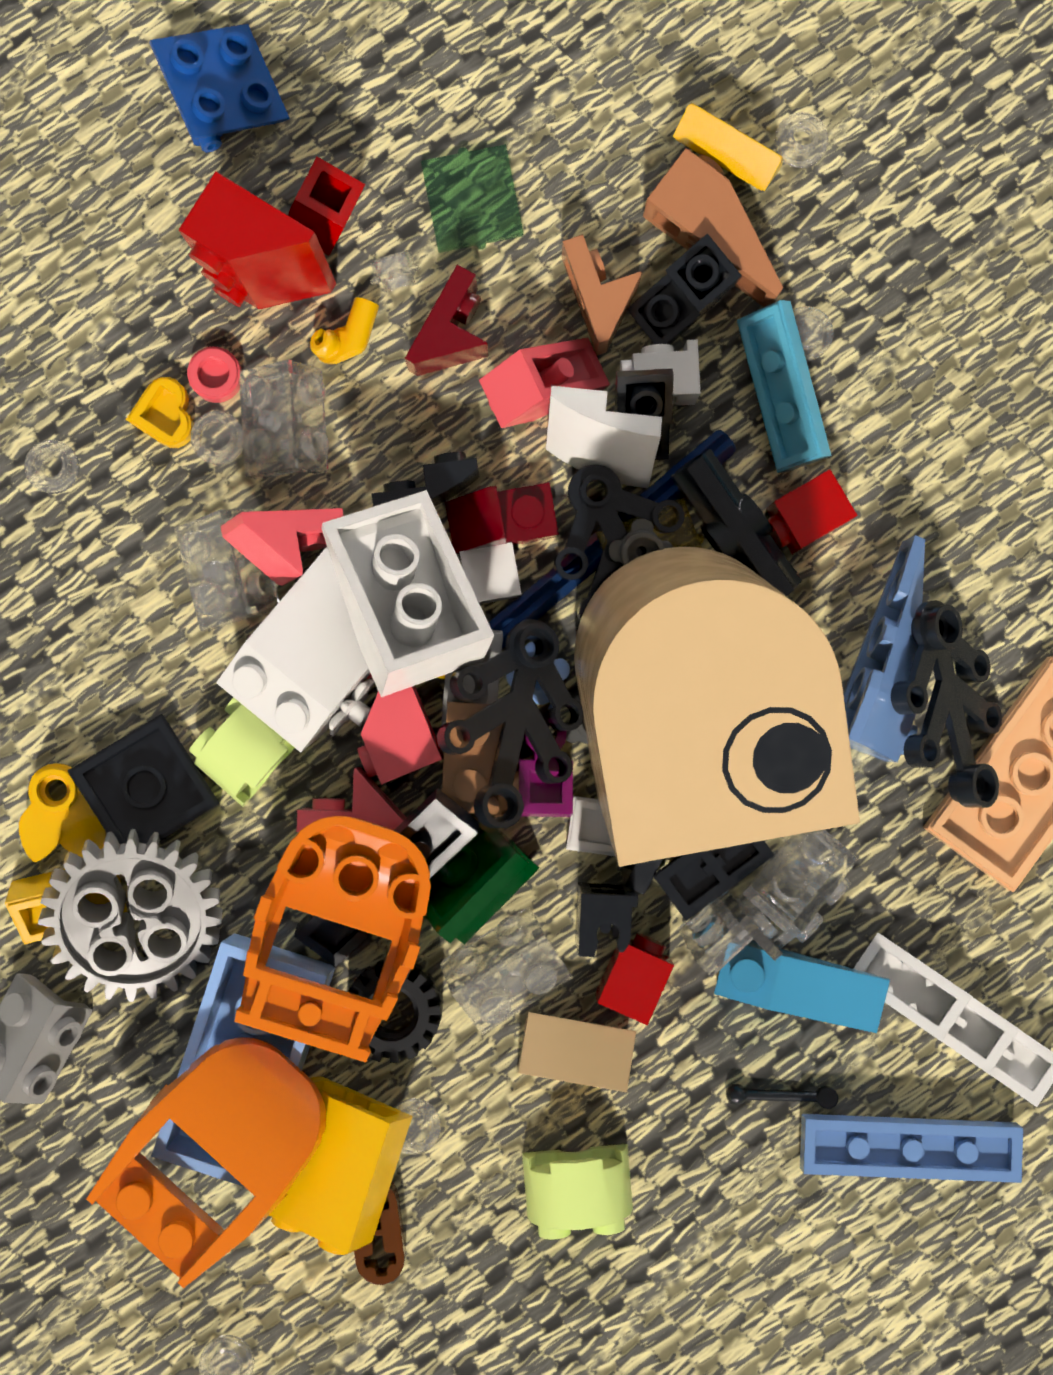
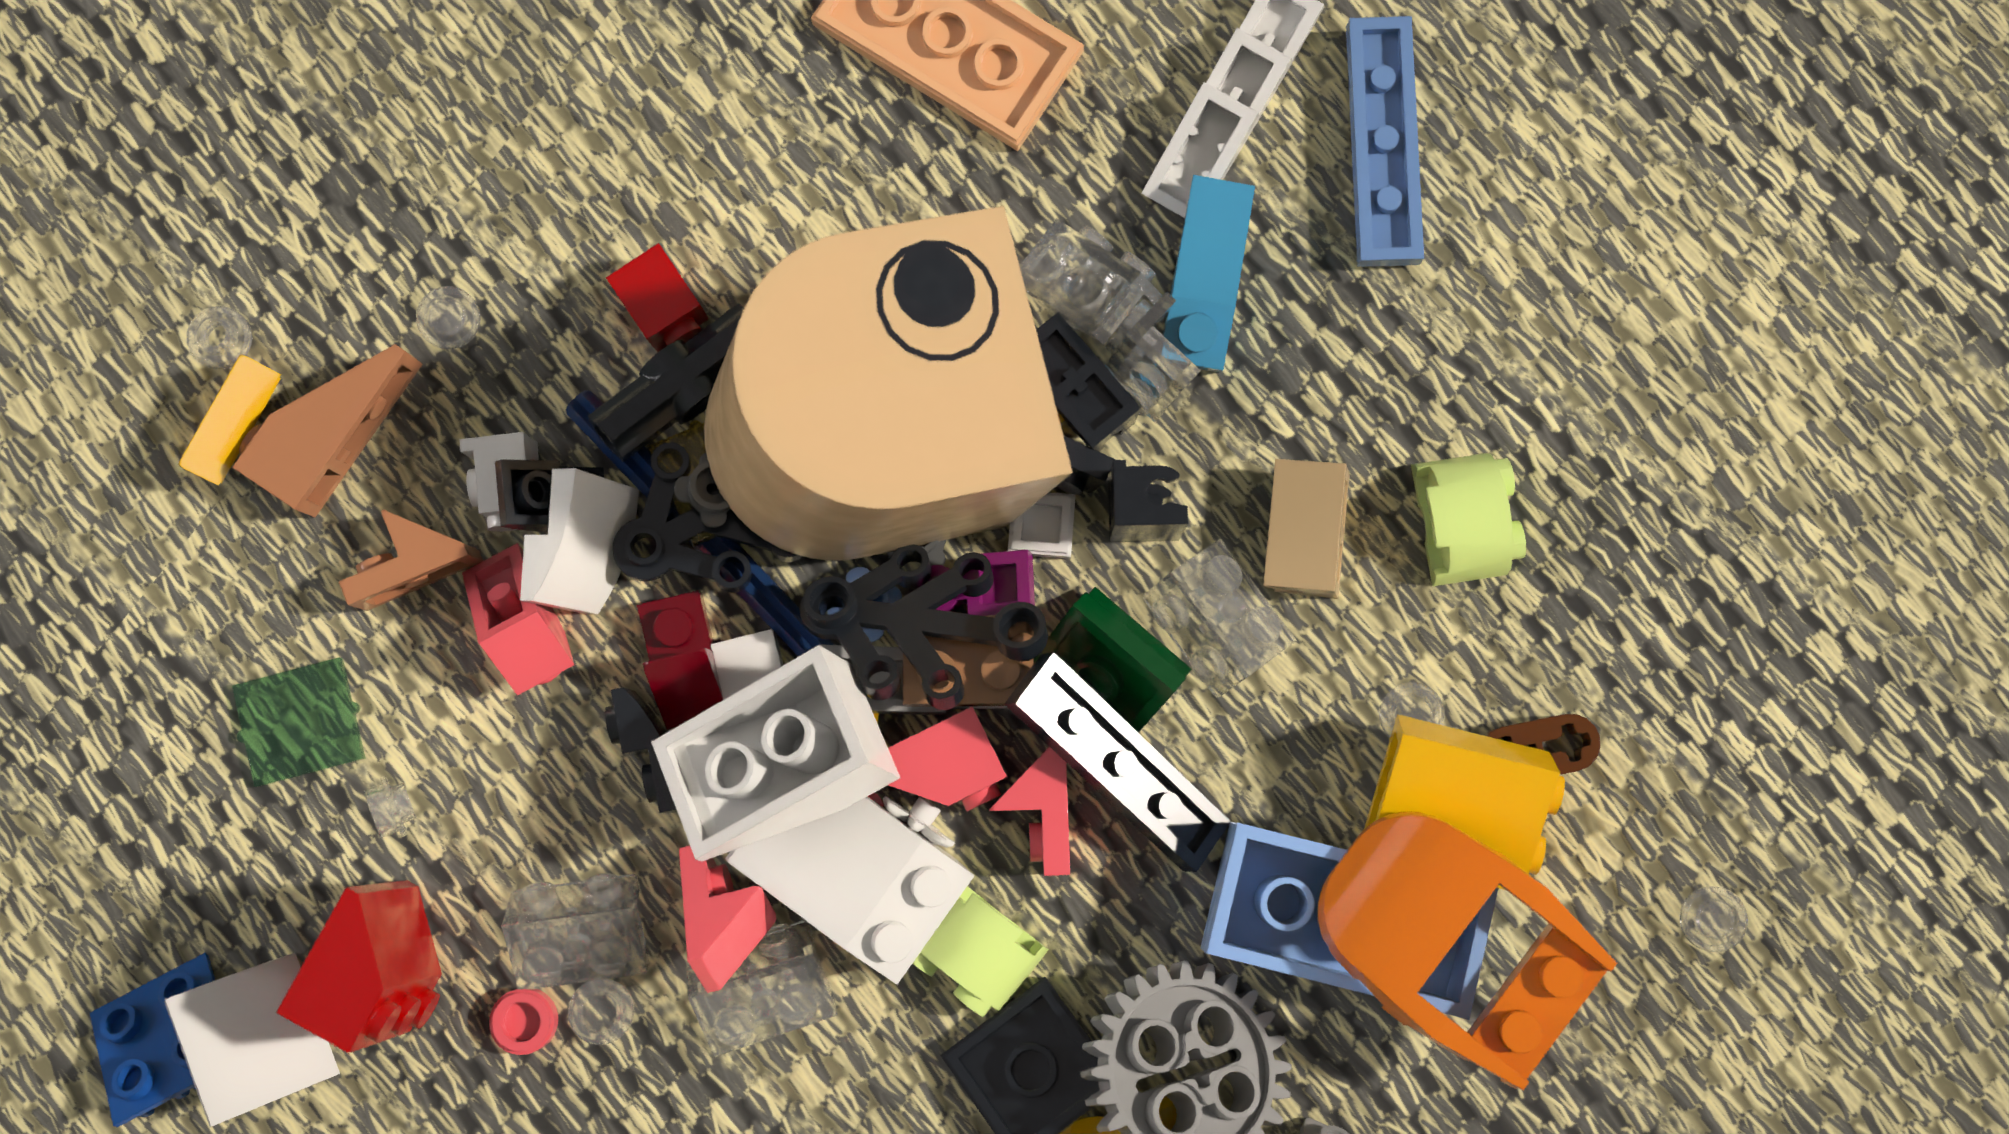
camera: 90 degrees left, 5 degrees down
(163, 413) = (573, 1082): yellow tile -> none
(211, 136) = (239, 1044): none -> white slope
(326, 202) = (303, 891): red brick -> none
(349, 340) = (475, 858): yellow arm -> none
(350, 877) = (1118, 795): orange slope -> none
(426, 1019) = (1314, 740): black tyre -> none
(440, 340) = (471, 743): dark red slope -> none
(635, 979) = (1214, 465): red brick -> none
(685, 292) = (404, 458): black slope -> none
(784, 386) = (511, 338): medium azure tile -> none
(825, 1095) = (1336, 241): black hinge -> none
(885, 660) = (821, 195): medium blue wedge -> none
(939, 638) = (791, 142): black plant -> none

